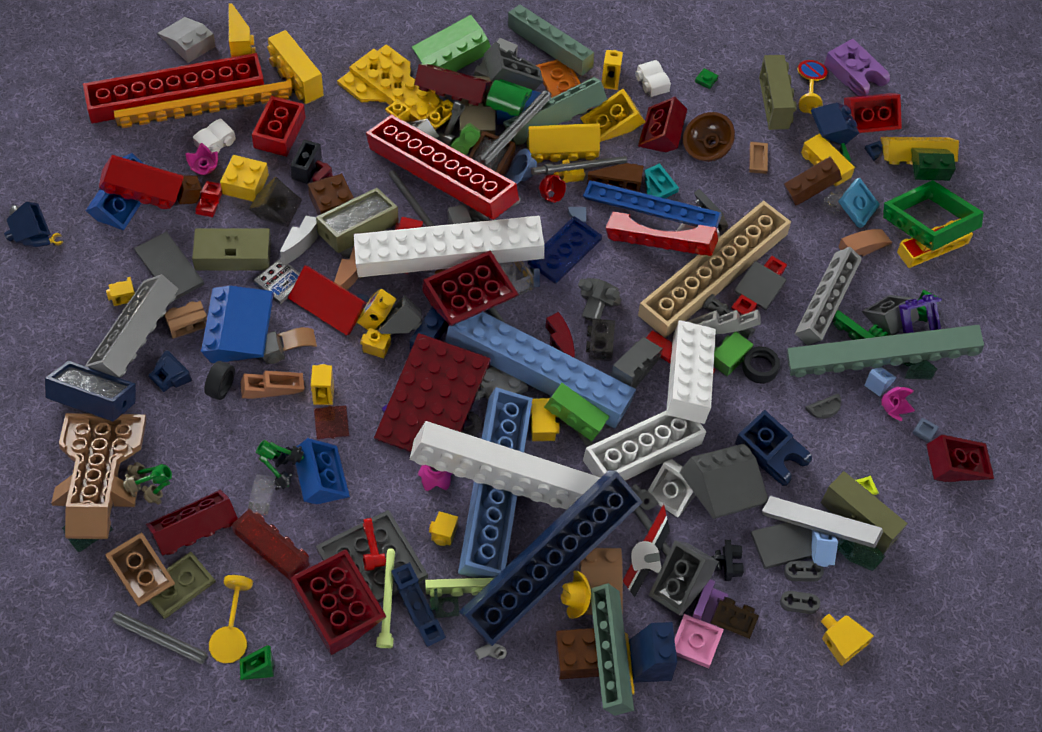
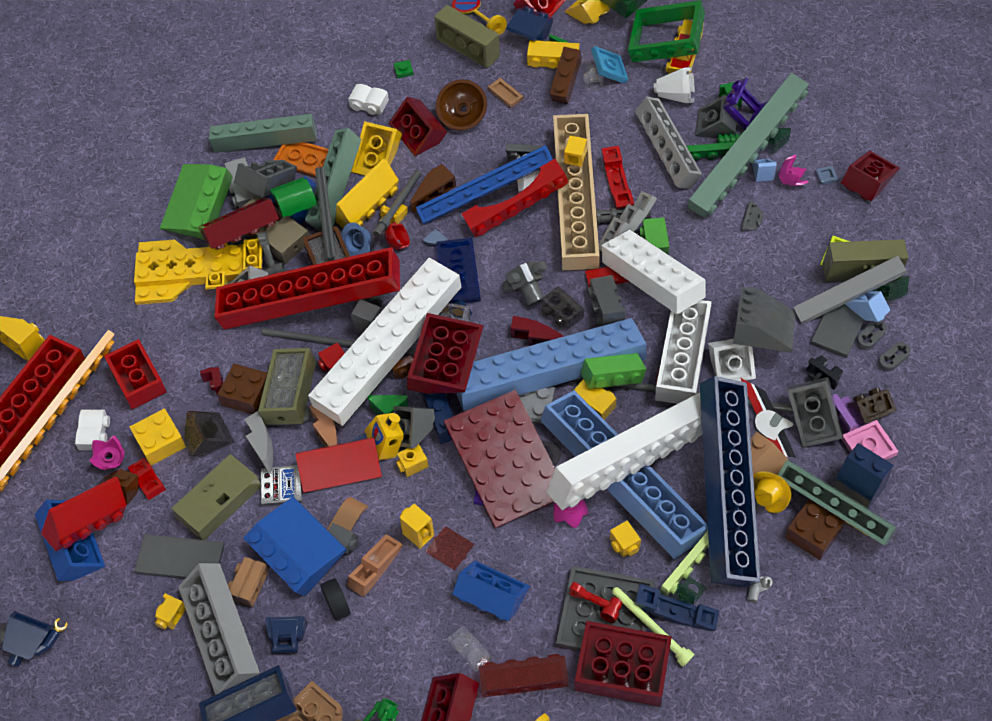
camera: 40 degrees left, 0 degrees up
(279, 456) = (447, 608): plant -> none
(295, 66) = (92, 318): yellow brick -> none
(304, 164) = (191, 380): black brick -> none
(403, 288) = (385, 403): none -> green slope
(468, 137) = (295, 254): bright green brick -> none
(613, 63) = (332, 113): yellow torso -> none
(659, 182) = (463, 167): teal wing -> none
(741, 237) = (575, 151): none -> yellow brick
(756, 376) = (682, 216): black tyre -> none
(760, 285) = (618, 174): dark grey tile -> none
(773, 446) = (758, 271): dark blue brick -> none
(845, 637) = (948, 351): yellow torso -> none
(865, 241) = (643, 87): nougat slope -> none
(874, 150) = (572, 23): dark blue tile -> none
(891, 260) = (676, 86): none -> white cone

